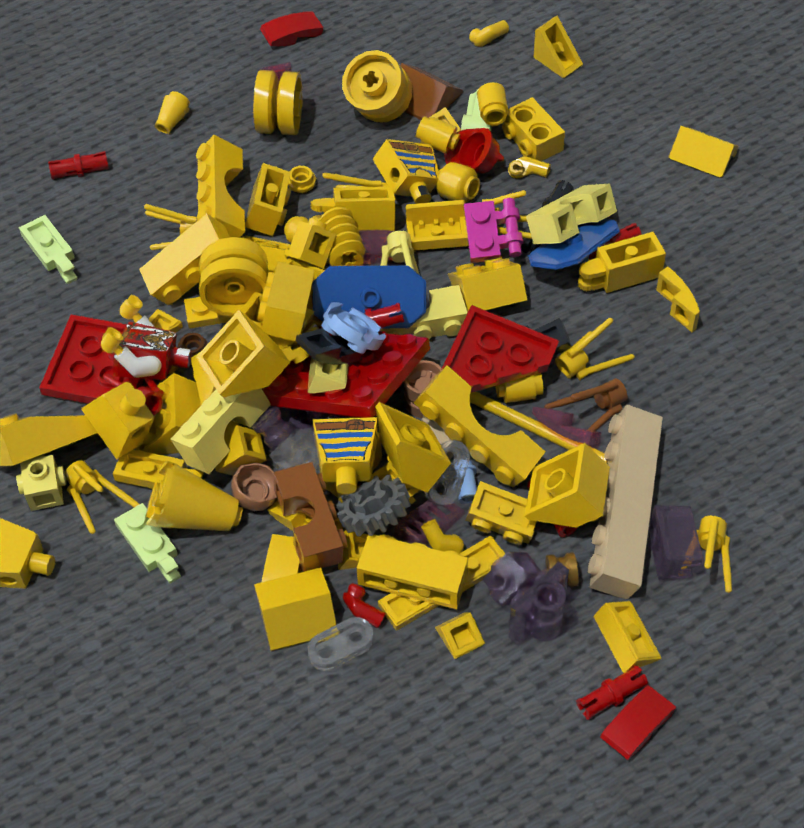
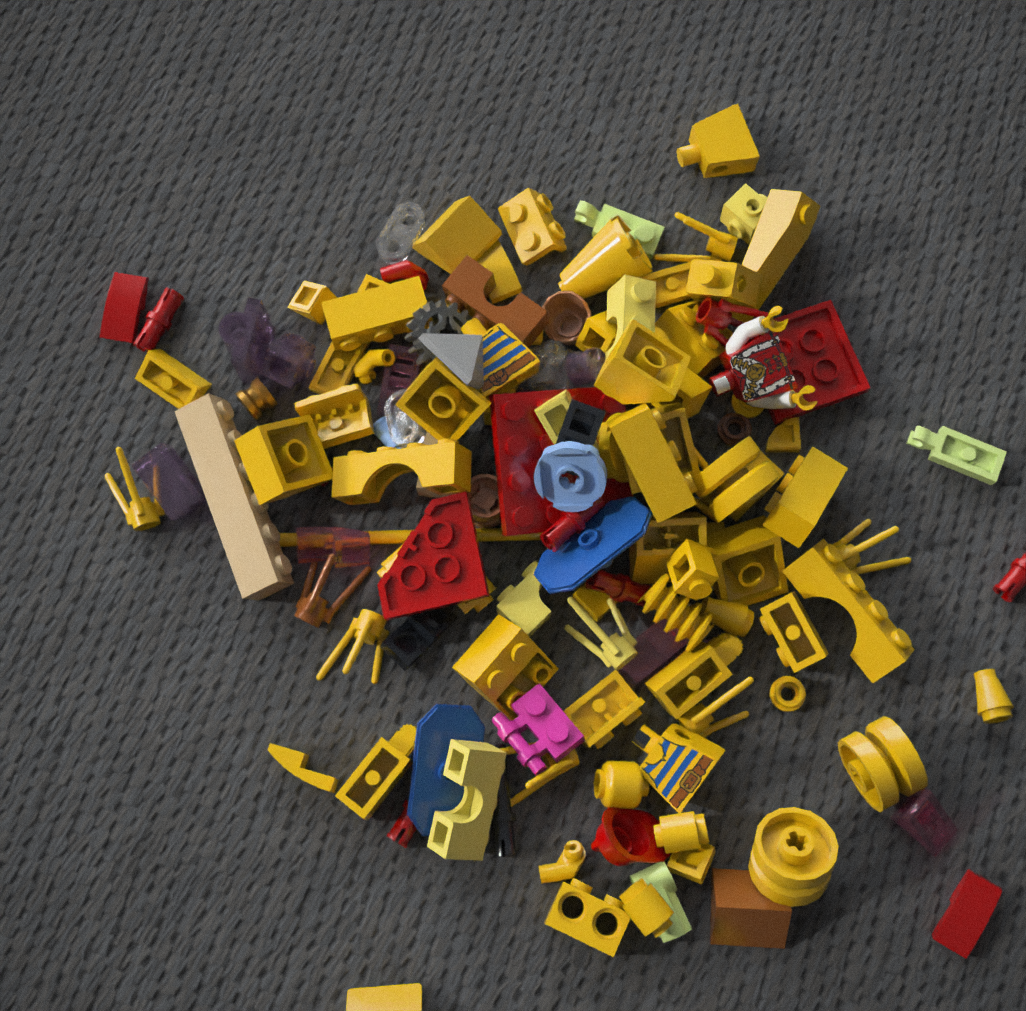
camera: 145 degrees right, 20 degrees up
(222, 582) = (532, 226): none -> yellow bracket
(378, 448) = (460, 354): none -> light grey slope

